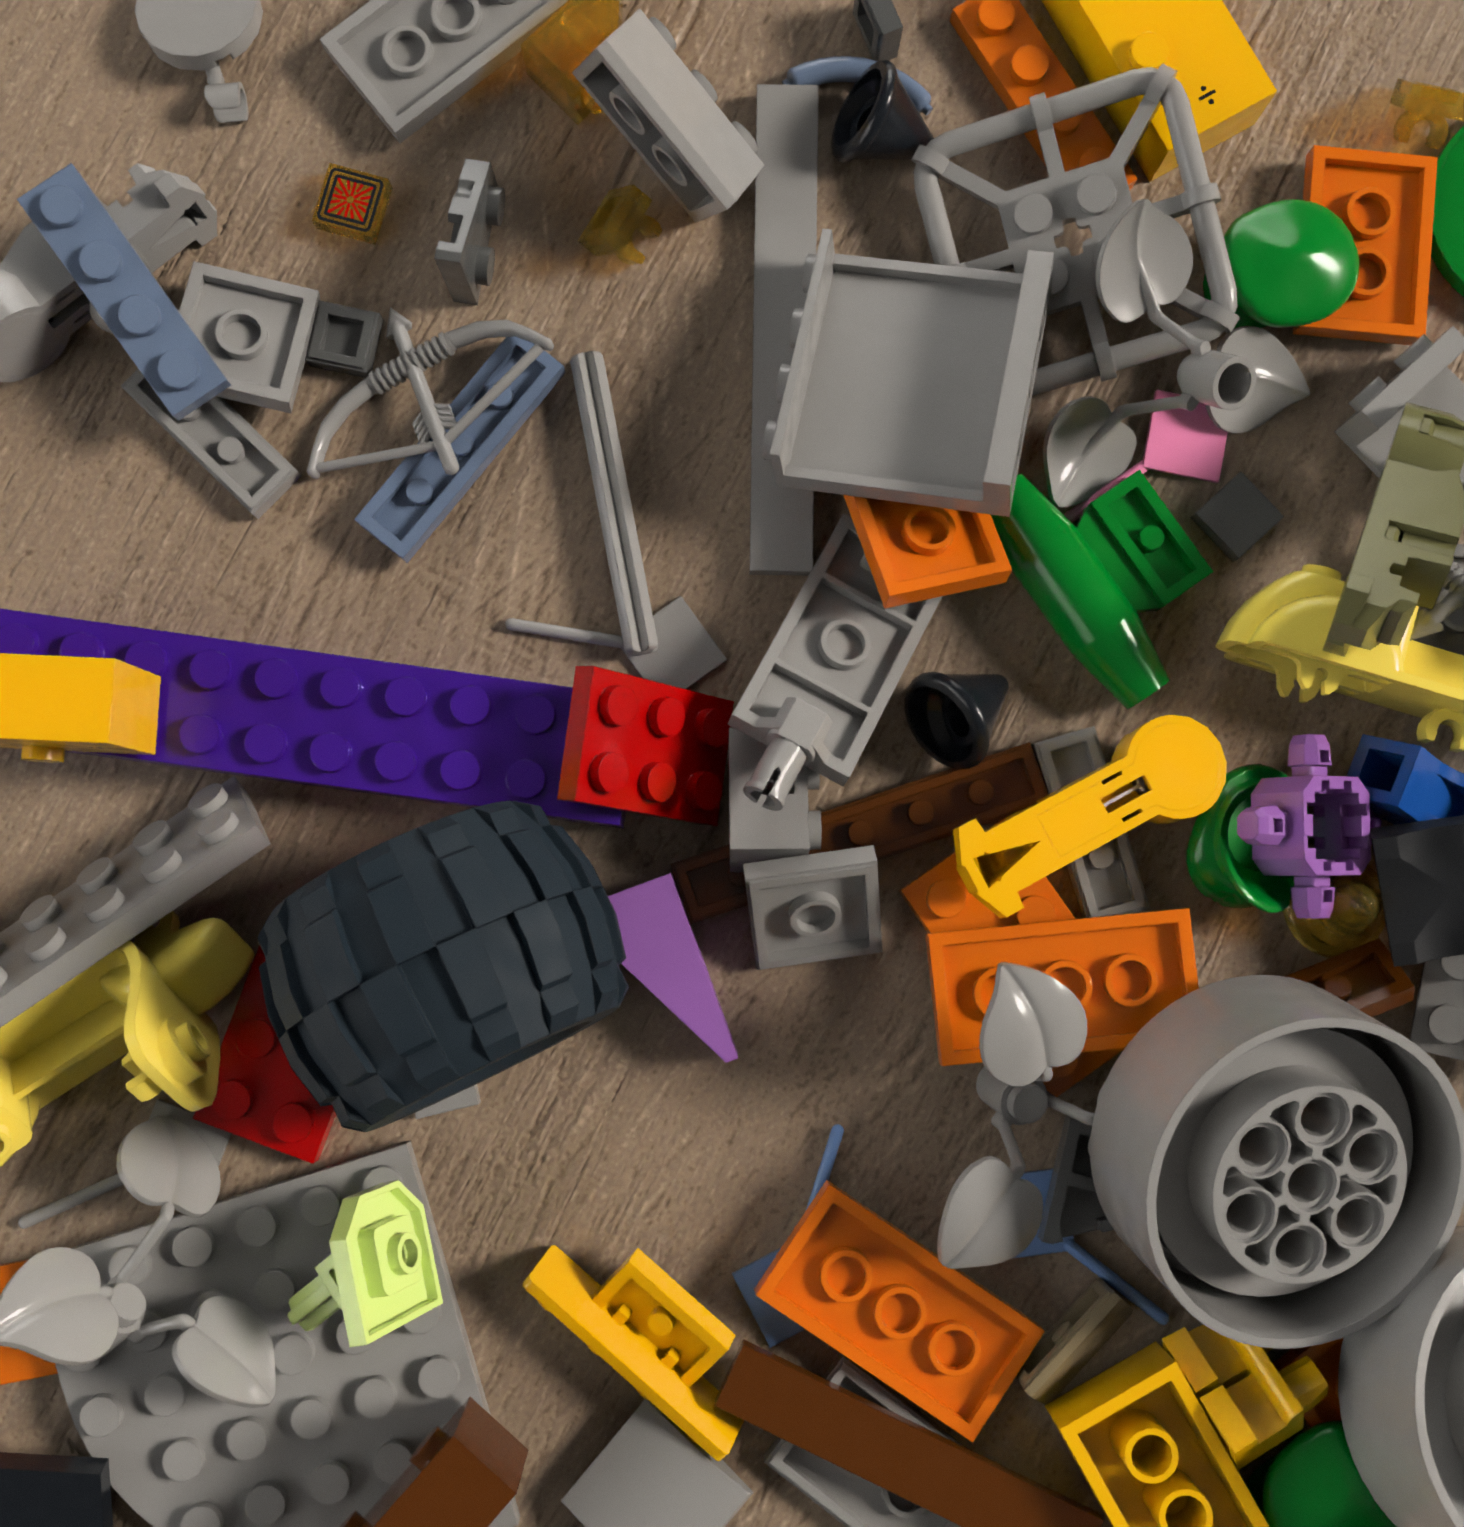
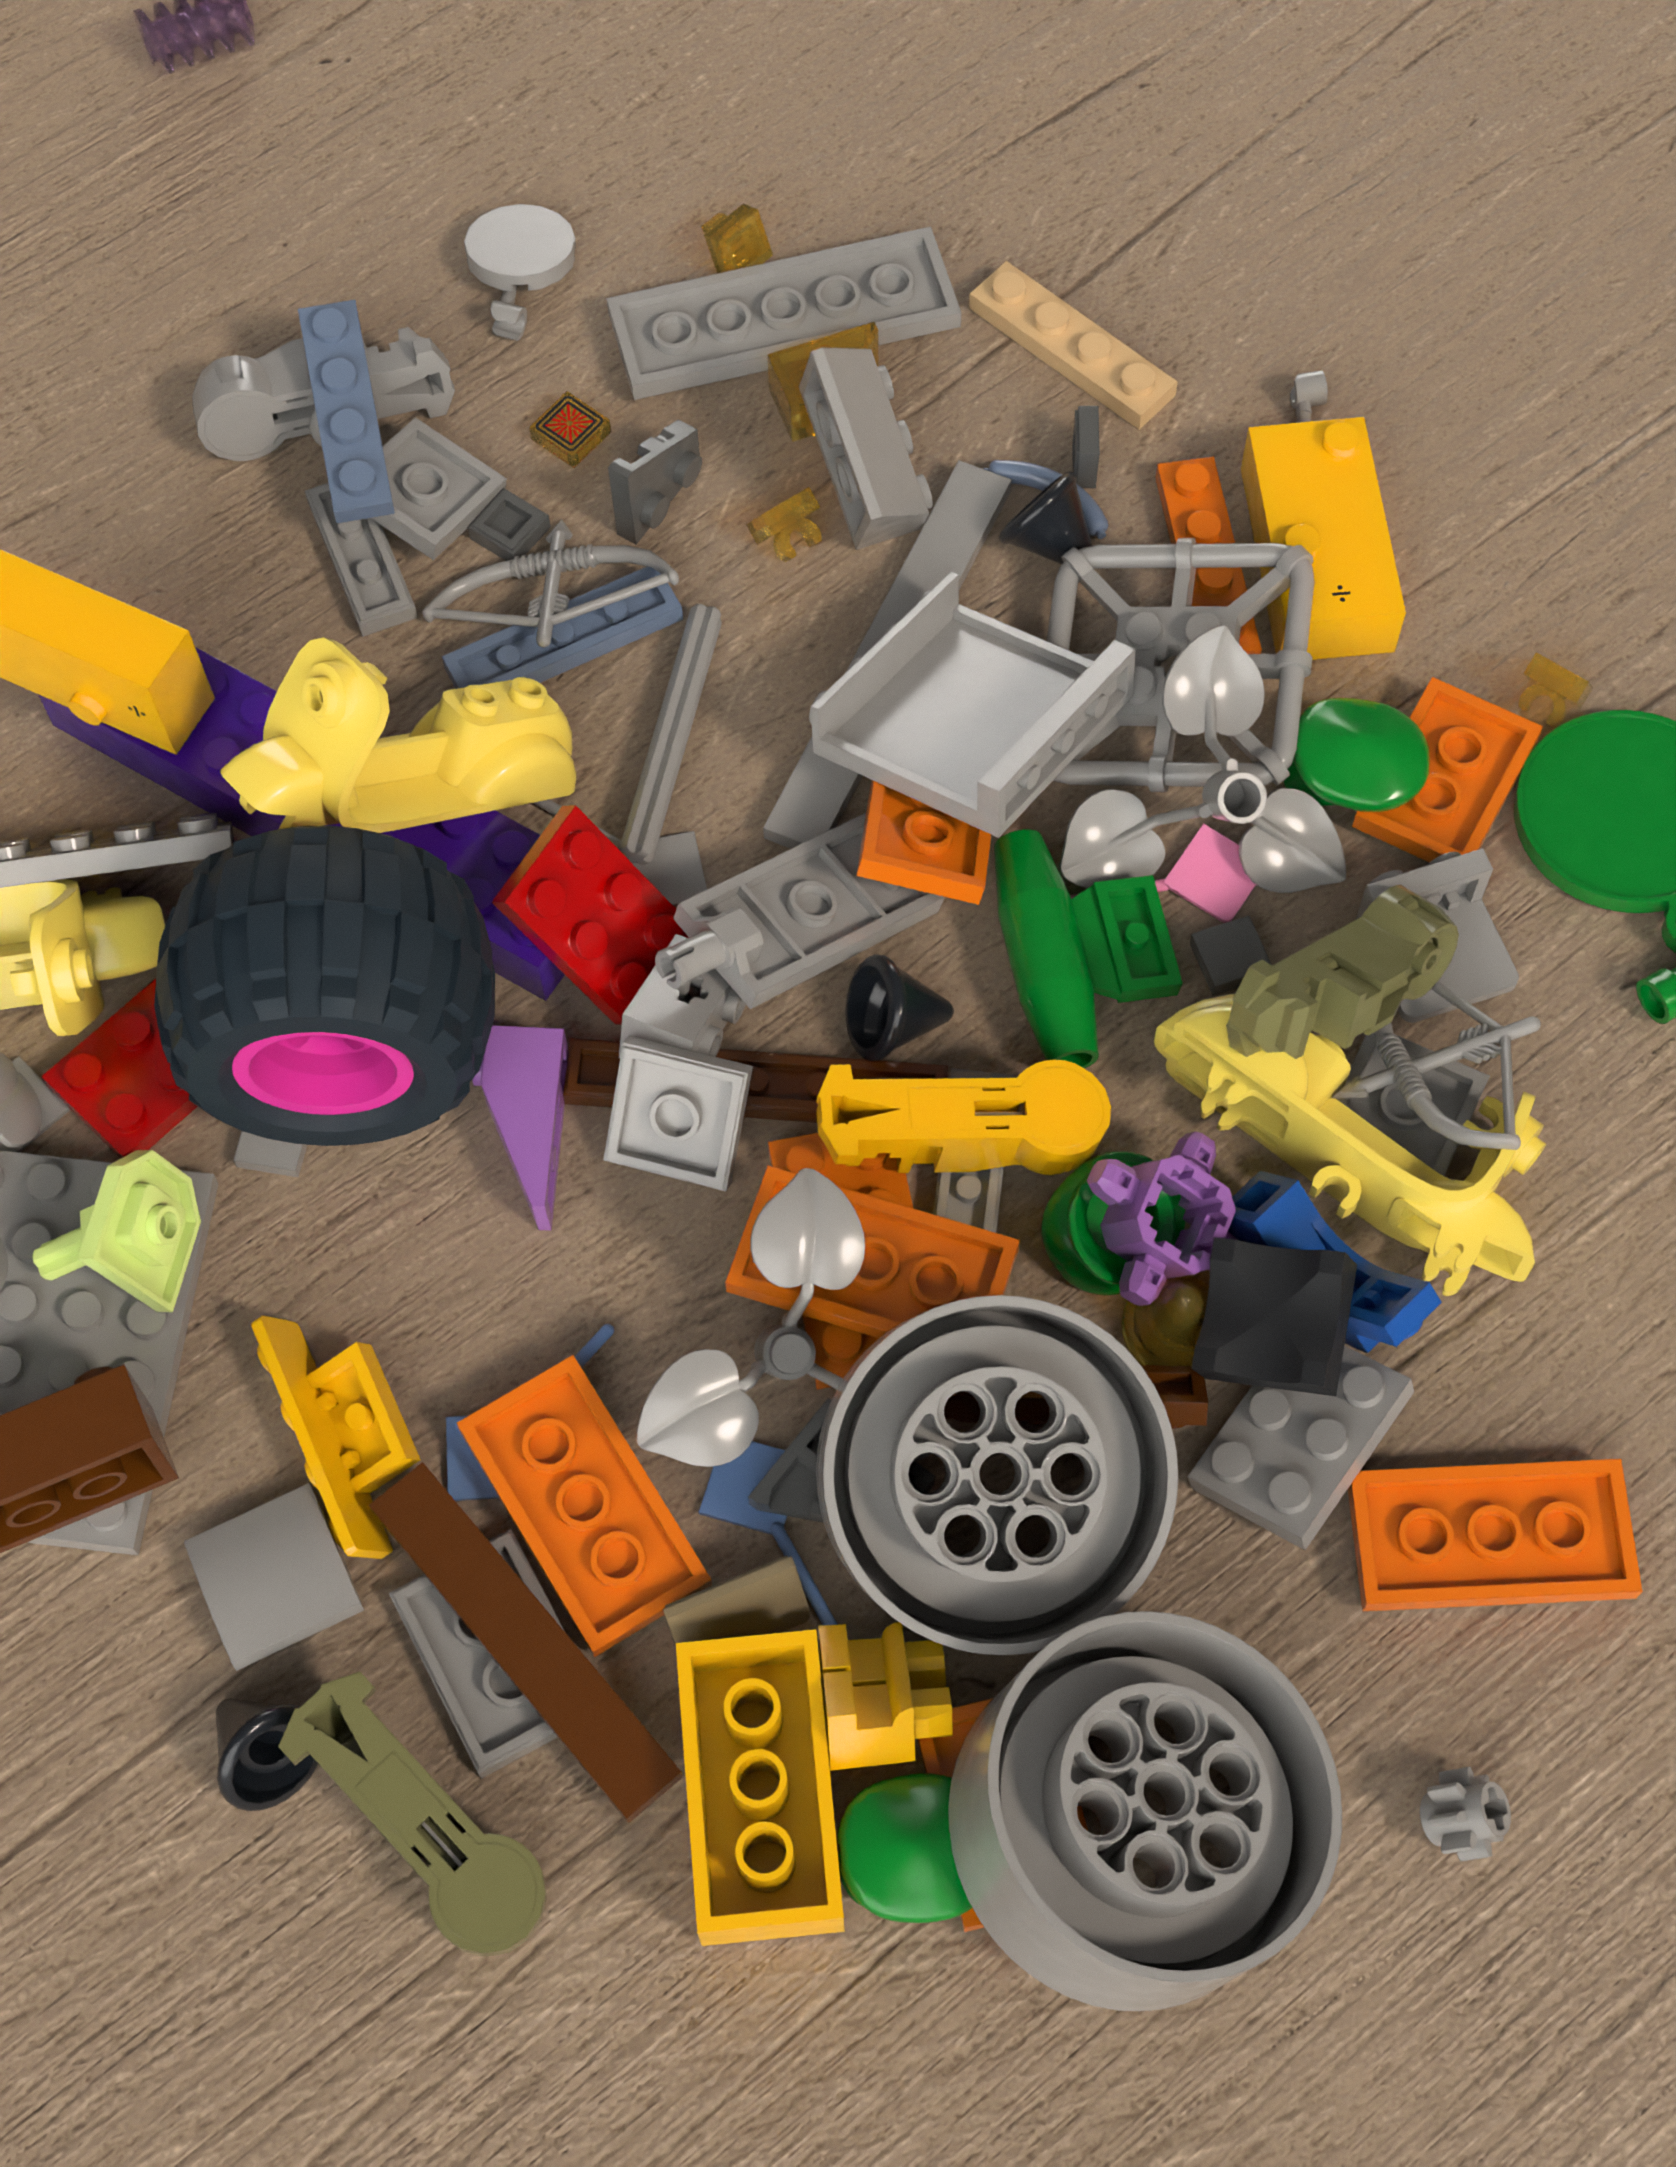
camera: 30 degrees right, 20 degrees down
(381, 715) = (463, 758): none -> light yellow piece

